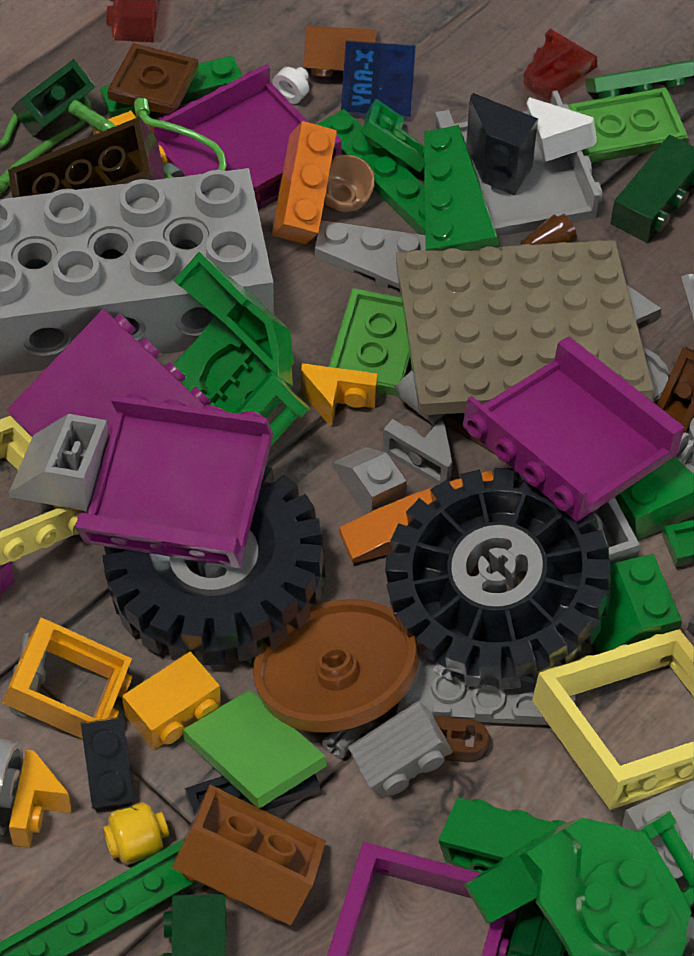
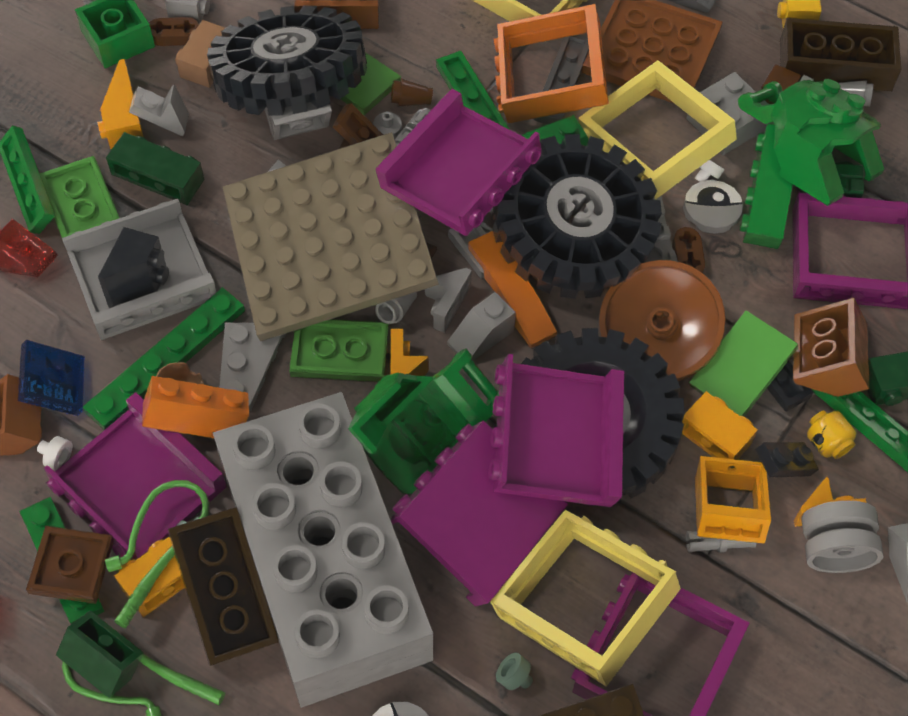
camera: 100 degrees left, 5 degrees up
(63, 463) = (554, 527): light grey slope -> none
(384, 129) = (121, 361): green plate -> none
(400, 750) = (719, 265): light grey brick -> none
(453, 196) = (198, 296): green wing -> none
(527, 783) = (713, 206): none -> tile
(552, 231) = (215, 237): reddish brown cone -> none
(561, 129) = (115, 218): white slope -> none
(583, 796) = (707, 169): none -> white tile

